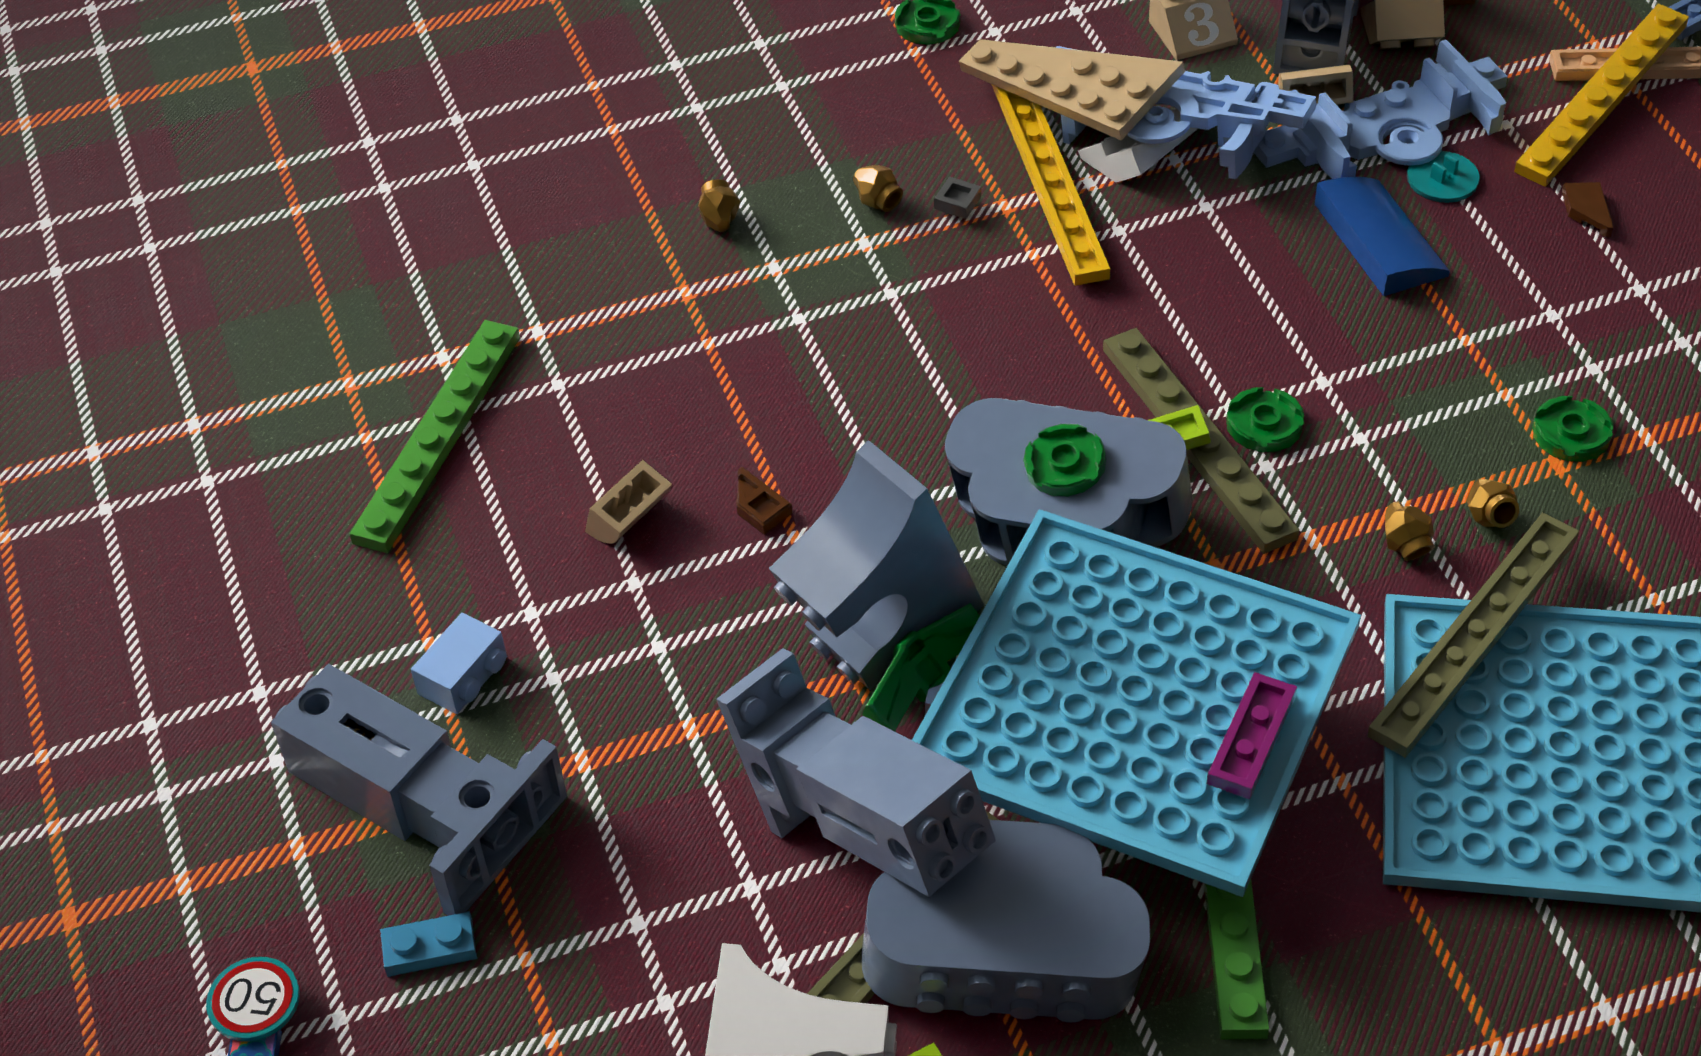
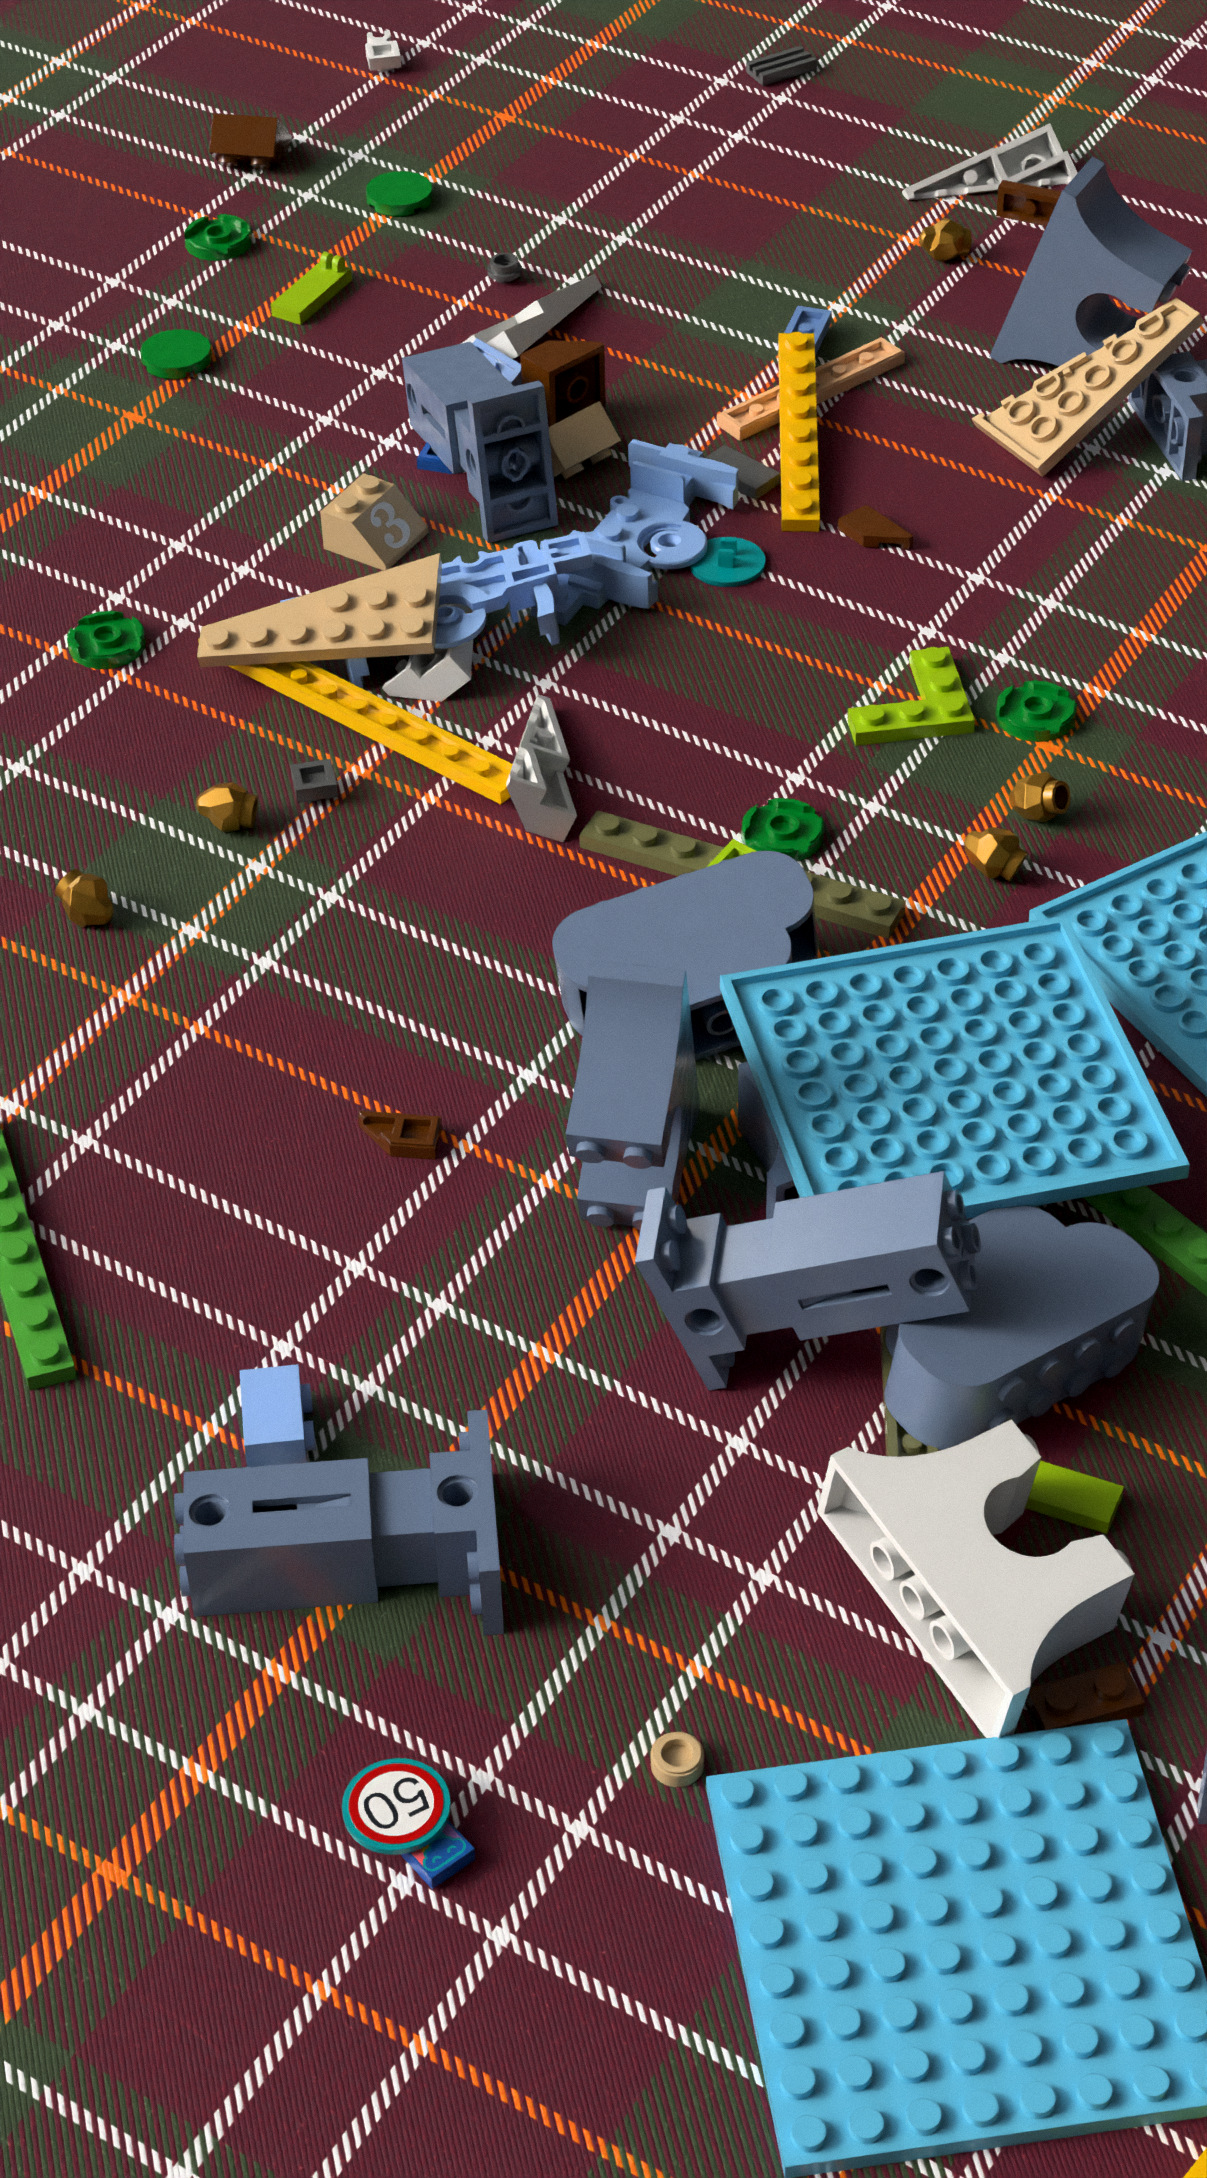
camera: 40 degrees left, 5 degrees down
(428, 944) = (502, 1664): dark azure plate -> none
(626, 503) = (289, 1199): tan brick -> none
(919, 665) = (705, 1164): green plate -> none
(1065, 460) = (698, 926): green tile -> none
(1104, 281) = (538, 777): none -> white wedge
(1251, 735) = (1086, 1046): magenta plate -> none
(1334, 81) = (555, 523): tan brick -> none
(1378, 234) = (722, 634): blue slope -> none
(1472, 635) = (1135, 901): olive plate -> none
(1488, 390) = (939, 713): none -> lime plate
(1524, 106) = (754, 477): none -> dark grey tile

